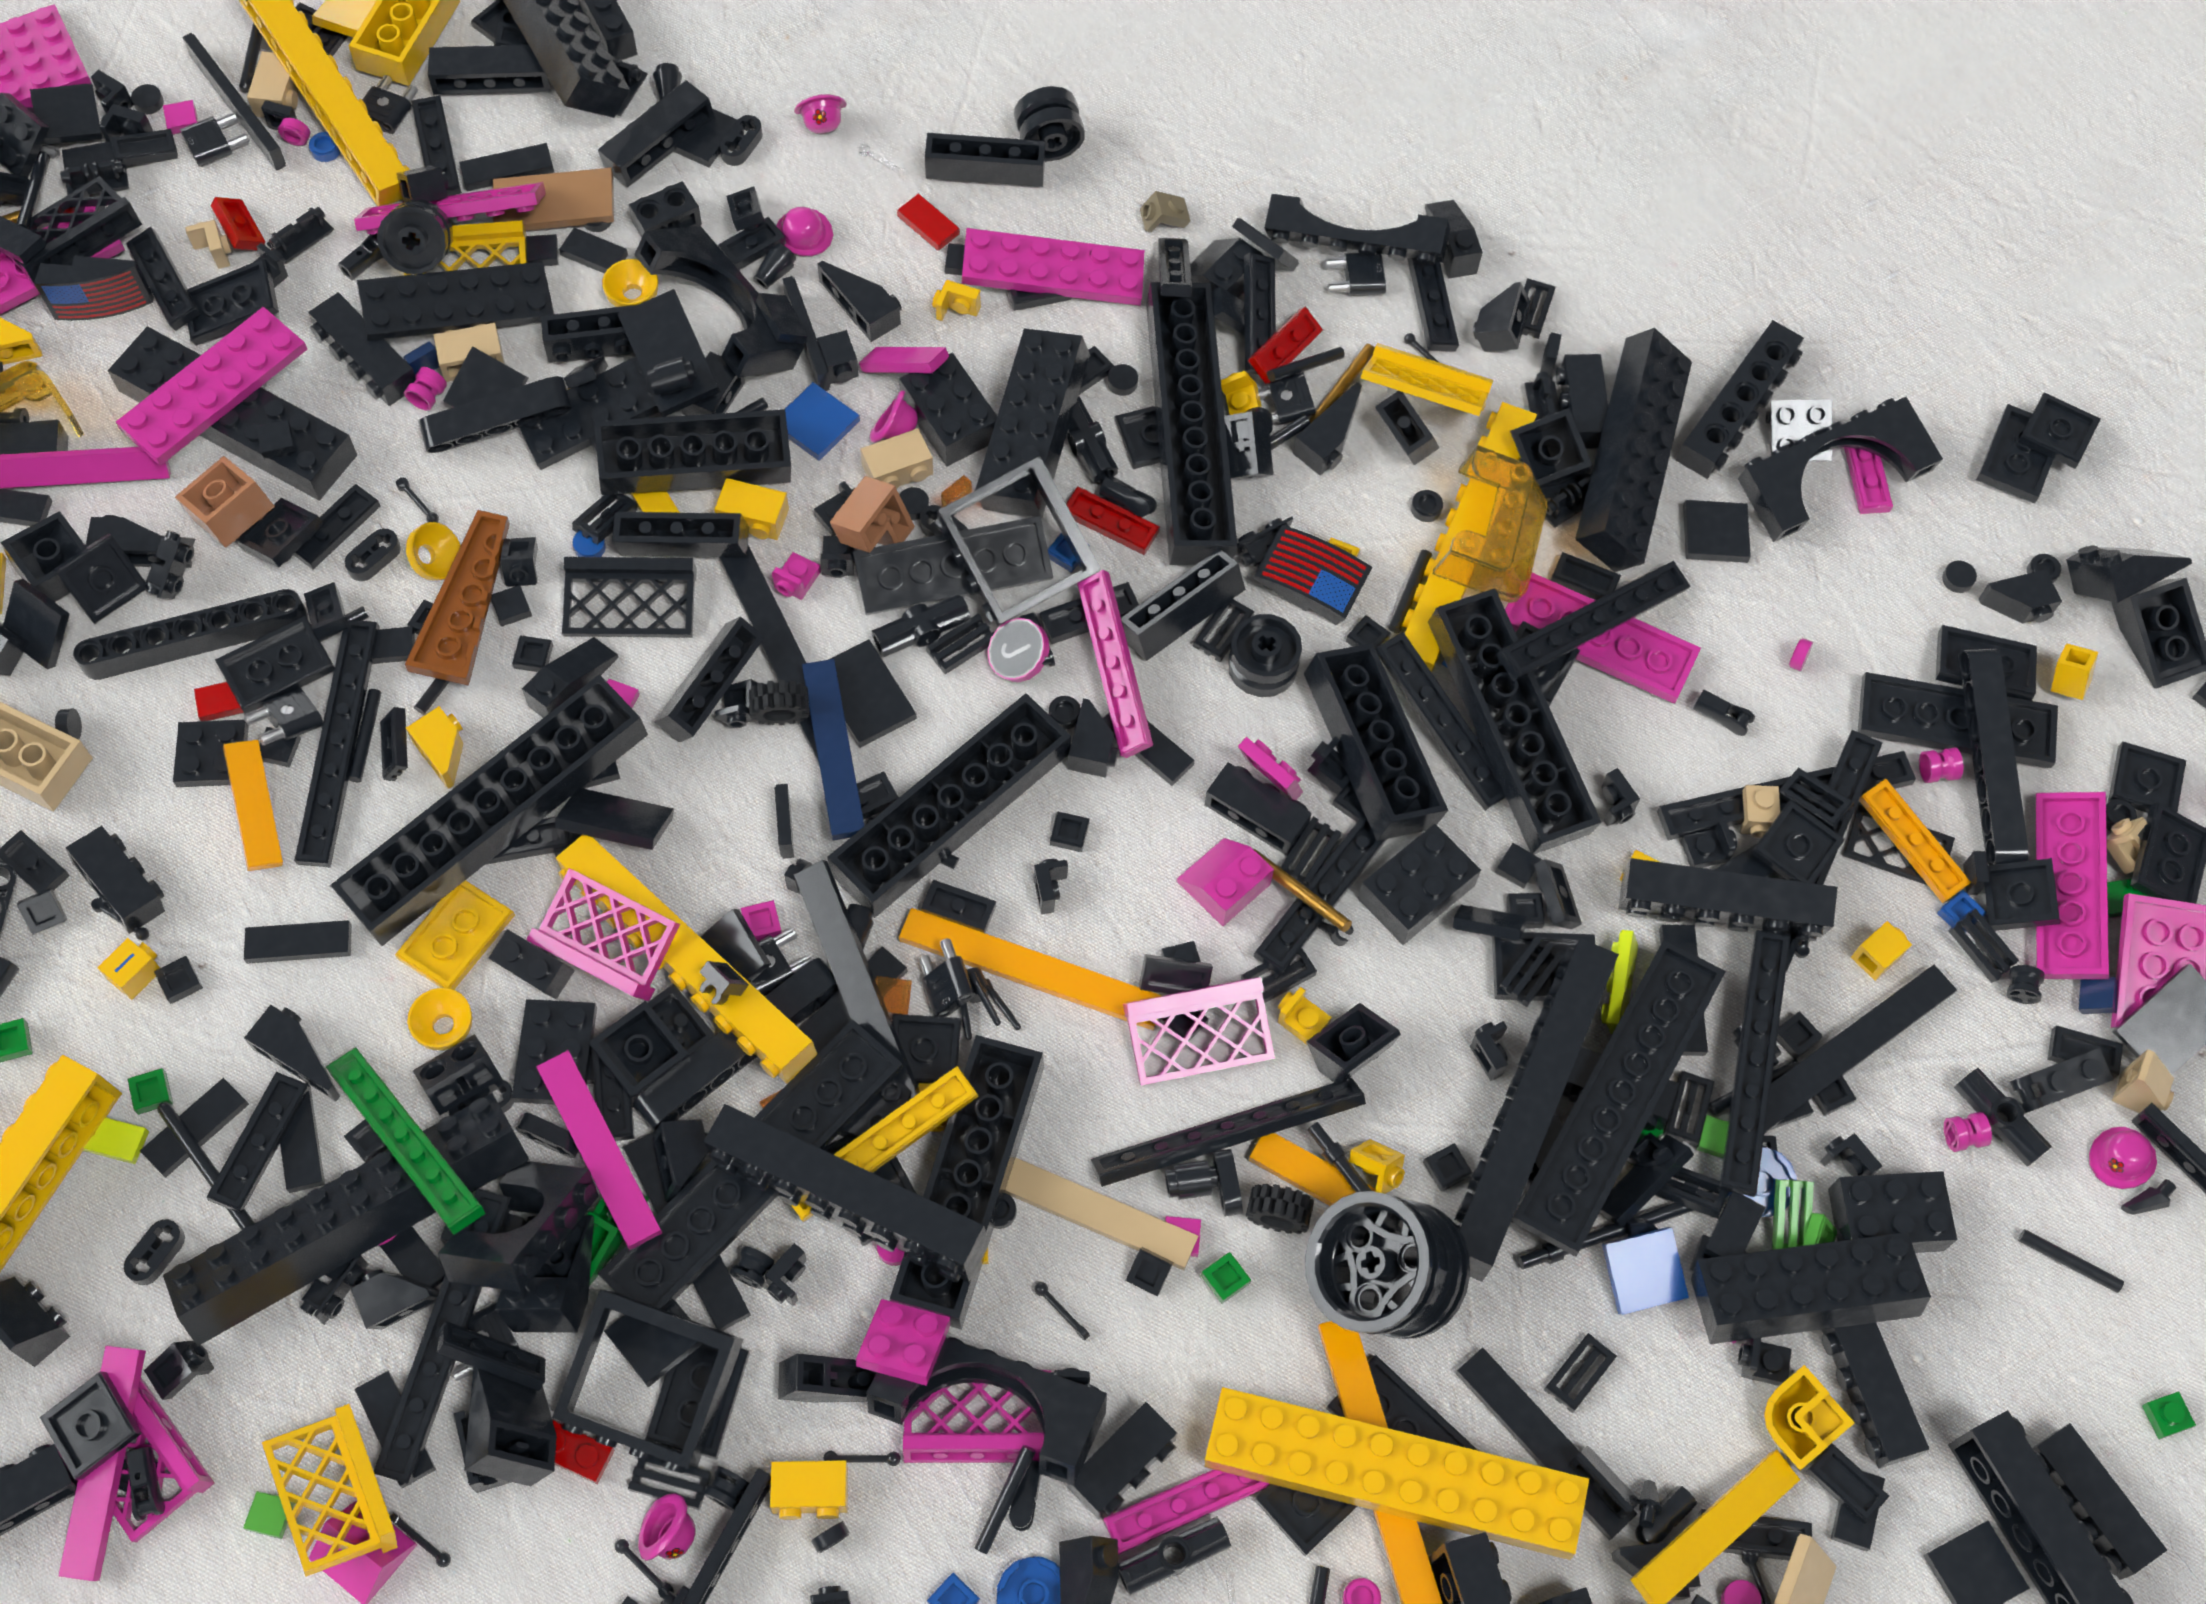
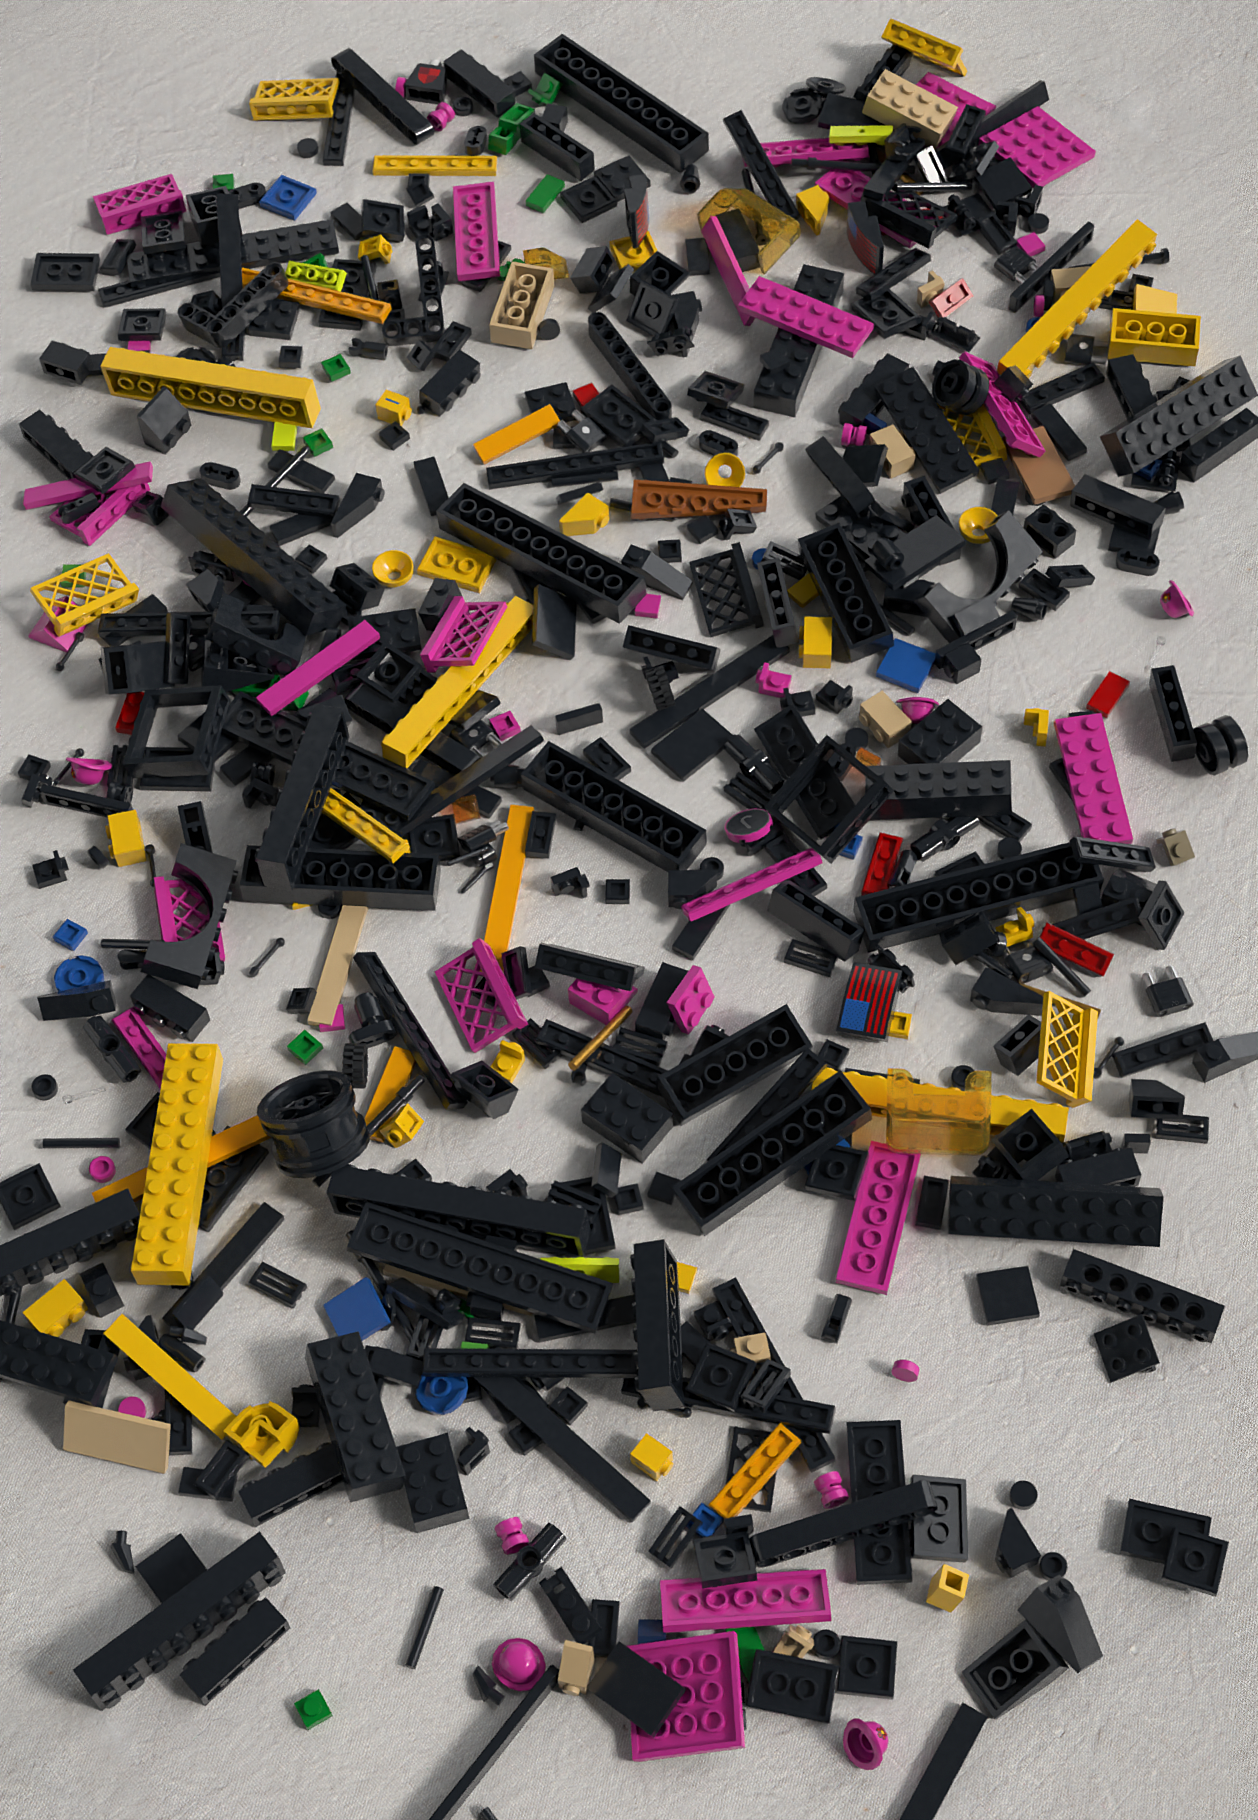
camera: 85 degrees right, 5 degrees down
(224, 501) = (726, 353): nougat brick -> none
(406, 1141) = (298, 563): green tile -> none
(723, 979) = (436, 695): tile -> none
(793, 869) = (546, 736): black tile -> none
(806, 231) = (1070, 620): dark pink hat -> none
(833, 749) = (639, 730): dark blue tile -> none
(862, 300) = (1013, 671): black slope -> none
(872, 516) = (823, 703): nougat brick -> none
(903, 1342) = (219, 859): dark pink plate -> none
(904, 359) = (967, 699): dark pink tile -> none
(1208, 875) = (587, 966): none -> black fence
(1264, 655) = (789, 980): black wheel -> none
(1420, 240) = (1195, 932): black arch -> none
(1557, 893) = (643, 1215): black plate -> none
(1592, 621) = (878, 1198): black tile -> none
(1620, 794) = (738, 1249): black bracket -> none
(1793, 1212) = (397, 1415): bright green tile -> none
(1820, 1230) = (405, 1431): bright green tile -> none
(1868, 481) = (1107, 1410): dark pink tile -> none
(1889, 432) = (1061, 1329): black arch -> none
(2025, 984) = (647, 1571): black wheel -> none

